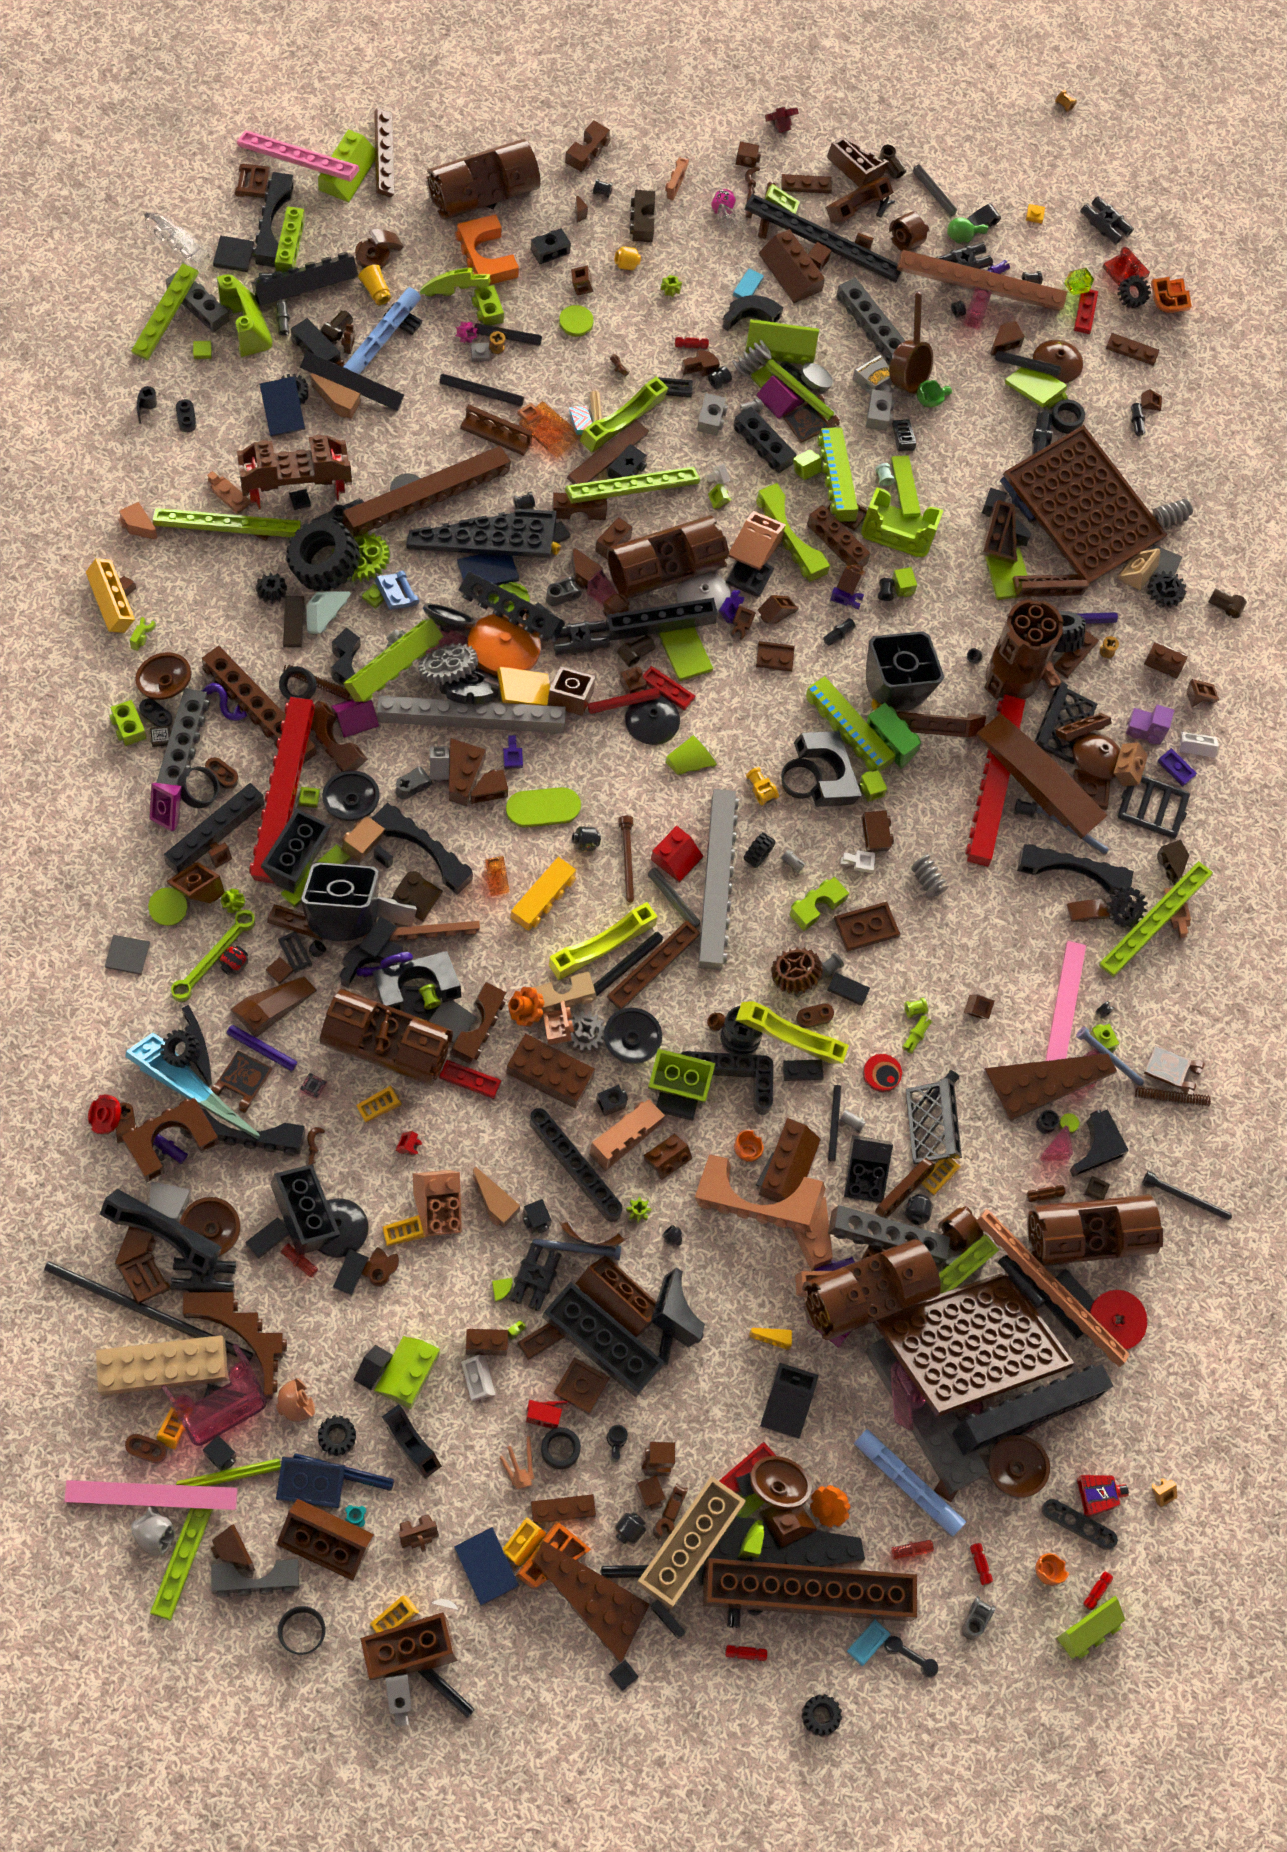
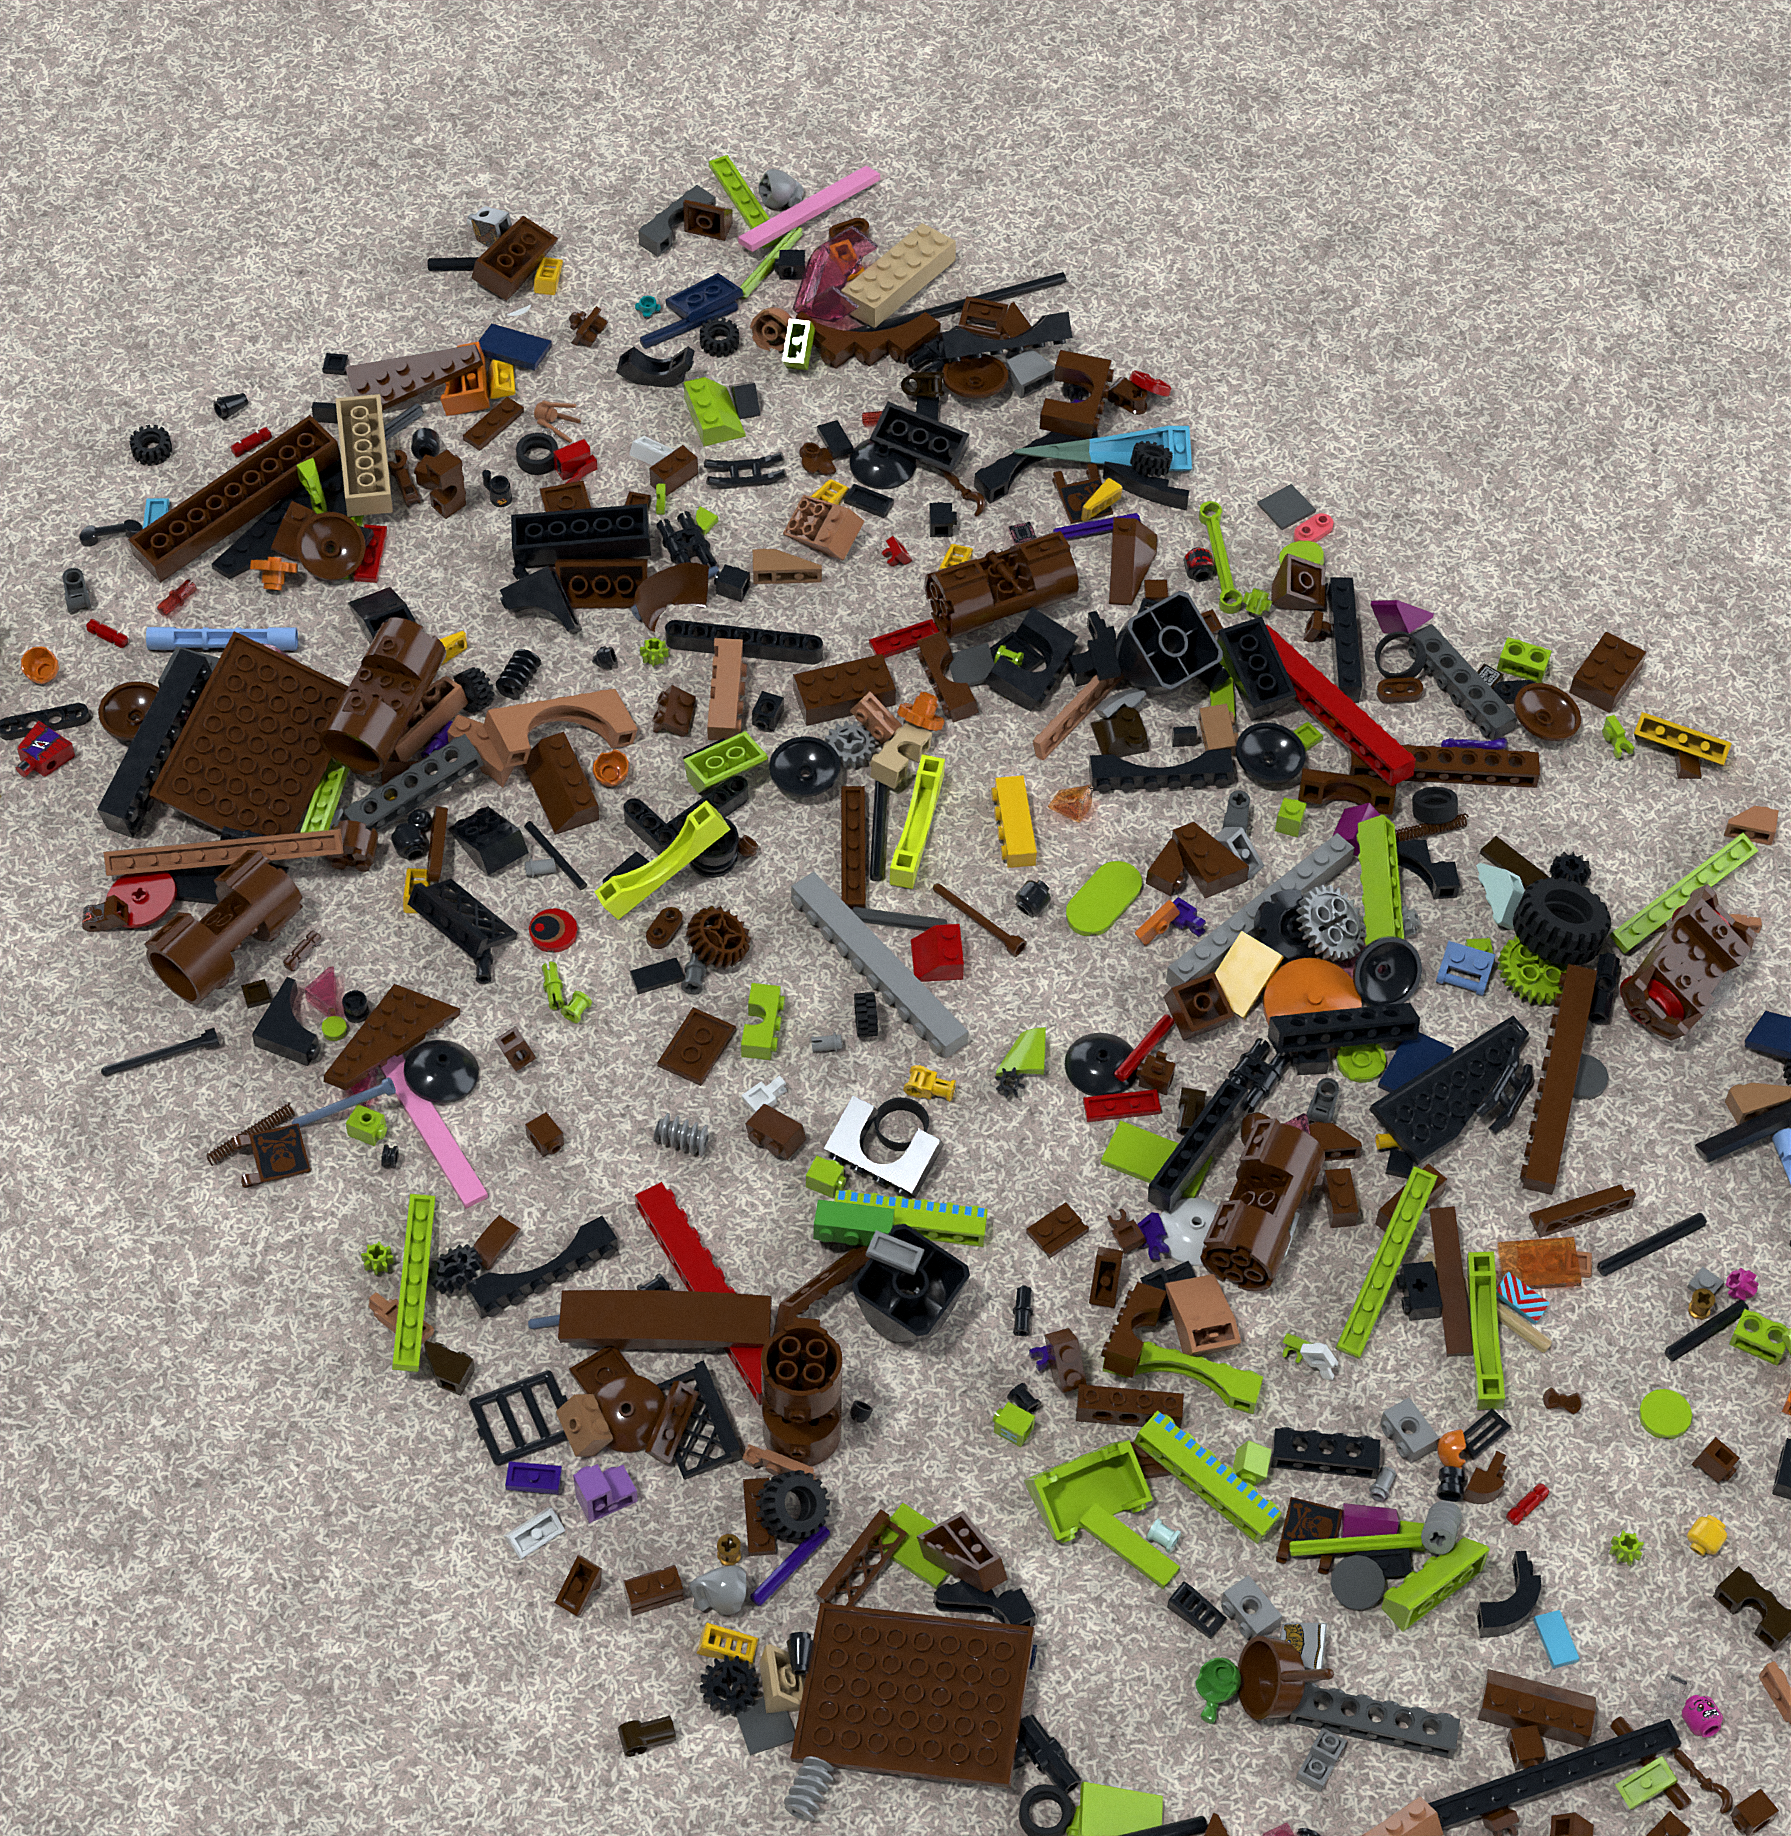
camera: 145 degrees right, 10 degrees down
(92, 671) = (1607, 672): none -> reddish brown brick
(132, 921) = (1314, 527): none -> coral plate
(241, 1057) = (1104, 497): none -> yellow slope
(250, 1257) = (928, 384): none -> dark brown piece
(298, 1364) = (798, 344): none -> lime brick
(300, 1609) = (601, 204): black tyre -> none
(324, 1539) = (654, 276): reddish brown slope -> none
(354, 1141) = (941, 519): none -> black brick
(380, 1204) = (868, 500): none -> black tile
(384, 752) = (1290, 817): none -> lime brick
(400, 957) = (1072, 649): dark purple animal -> none
(434, 1290) = (733, 466): none -> black piece
(458, 510) = (1498, 1094): none -> black piece
(524, 501) = (1467, 1161): black bush -> none
(536, 757) = (1157, 922): none -> orange plate
(702, 385) = (1450, 1448): none -> orange hair
(718, 746) = (1013, 1076): none -> black gear
(733, 1702) = (229, 405): none -> black cone
(740, 1270) = (517, 673): none -> black piece
(785, 1278) = (475, 688): none -> black tyre
(823, 550) = (1125, 1349): none -> reddish brown arch
(898, 1217) = (420, 818): none -> black plate
(904, 673) = (894, 1252): none -> light grey tile
(907, 331) = (1321, 1759): none -> light grey slope
(1006, 944) = (544, 1134): none -> reddish brown brick
(1029, 1048) = (441, 1080): none -> black dish
(1120, 570) = (799, 1652): none -> black cone
(1132, 627) = (720, 1589): none -> light grey piece
(1153, 1321) = (104, 915): none -> reddish brown leg
(1154, 620) = (714, 1651): none -> yellow slope
(1162, 959) = (371, 1261): none -> lime gear

